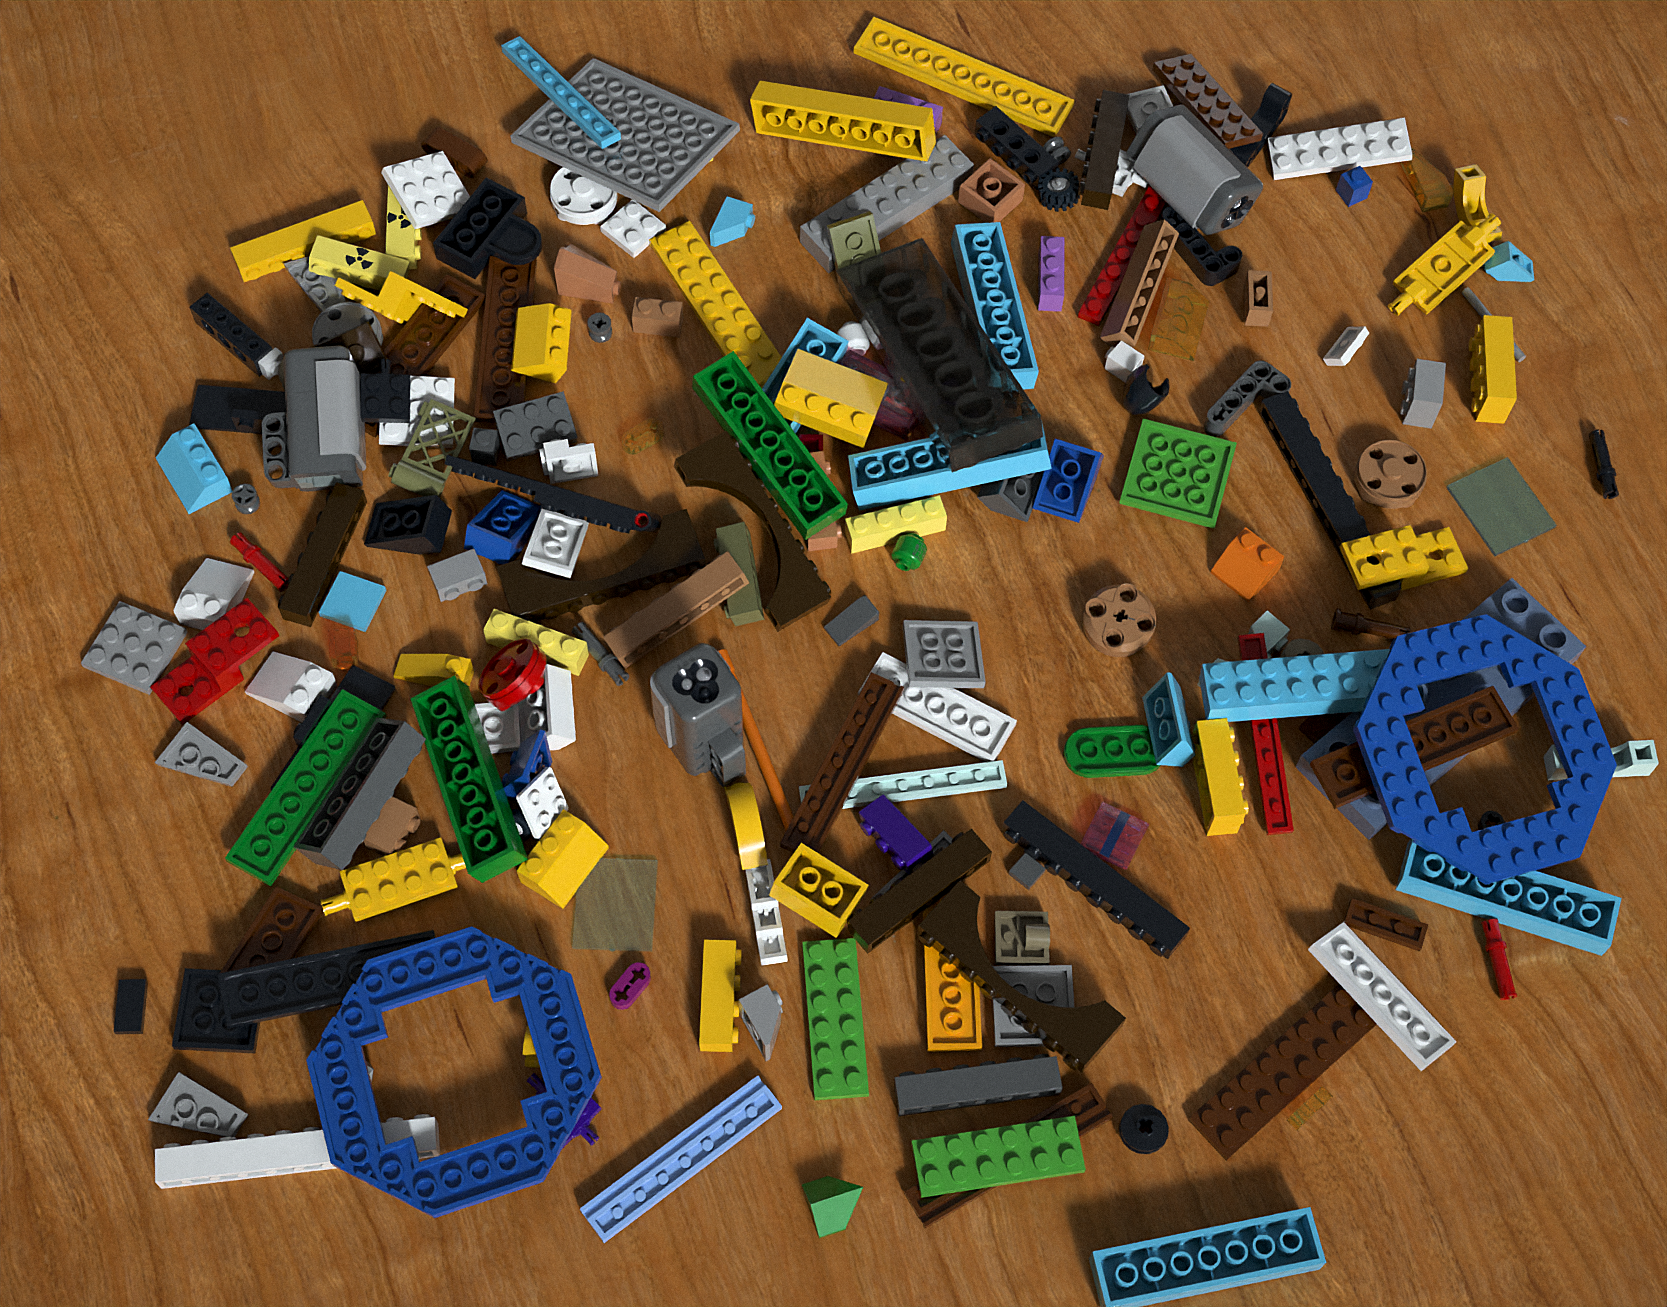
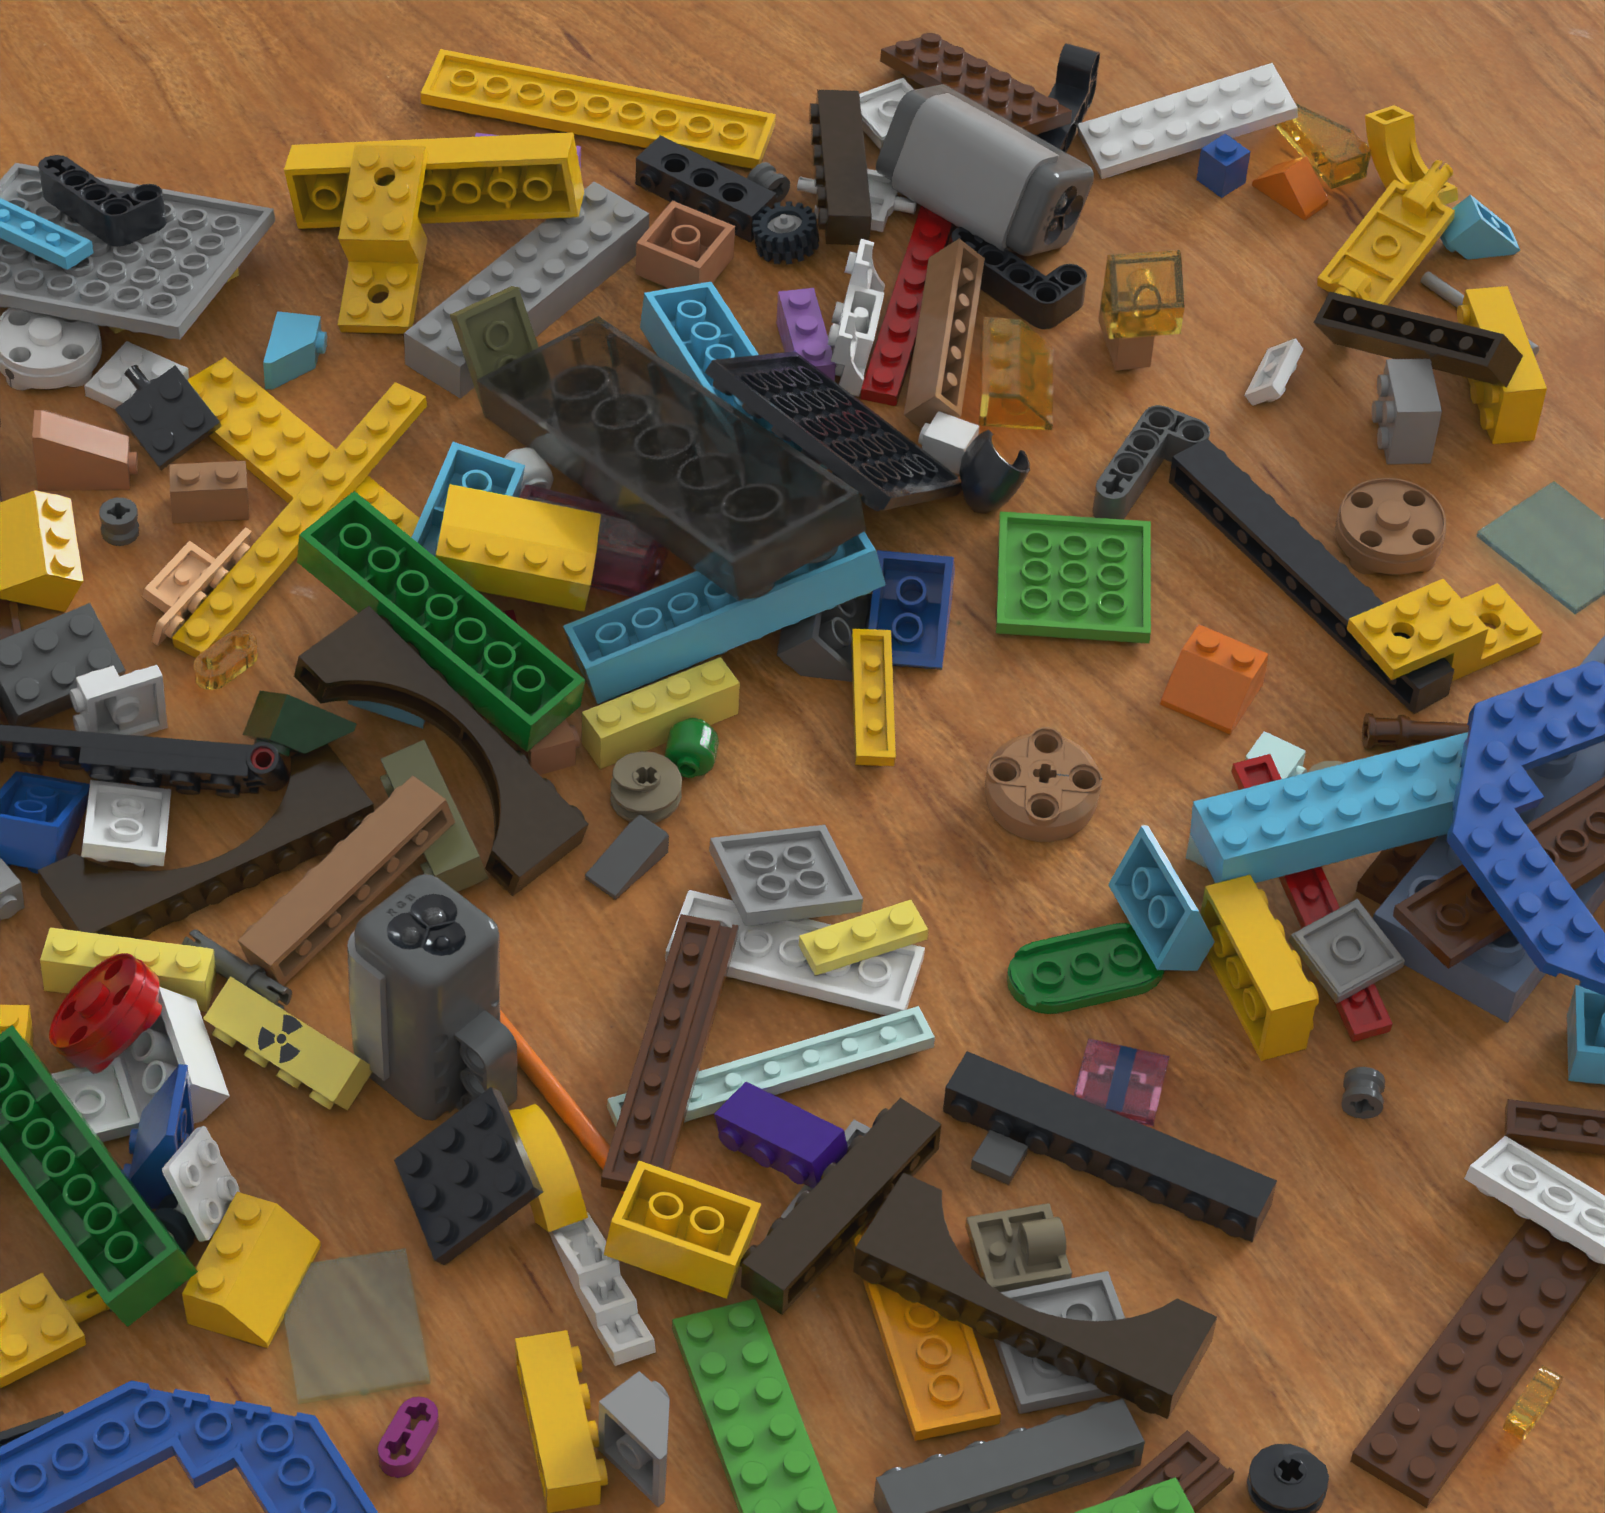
camera: 15 degrees left, 15 degrees down
(617, 711) = (287, 1043): none -> light yellow brick
(630, 377) = (187, 580): none -> light nougat bracket
(639, 115) = (99, 208): none -> black beam
(643, 259) = (166, 415): none -> black plate
(669, 495) = (293, 724): none -> dark green slope
(702, 825) = (468, 1176): none -> black plate
(708, 347) = (279, 543): none -> yellow plate
(801, 157) = (382, 238): none -> yellow bracket
(866, 571) = (645, 786): none -> dark tan piece
(980, 707) = (863, 937): none -> light yellow plate
(1029, 537) = (873, 697): none -> yellow plate
(1046, 352) = (834, 429): none -> black plate
(1087, 263) = (856, 319): none -> white bracket
(1262, 874) = (1363, 1092): none -> dark grey wheel
(1270, 285) = (1143, 294): none -> clear yellow slope
(1277, 777) = (1347, 951): none -> light grey tile
(1396, 208) = (1293, 187): none -> orange slope
(1443, 346) = (1412, 335): none -> dark brown brick

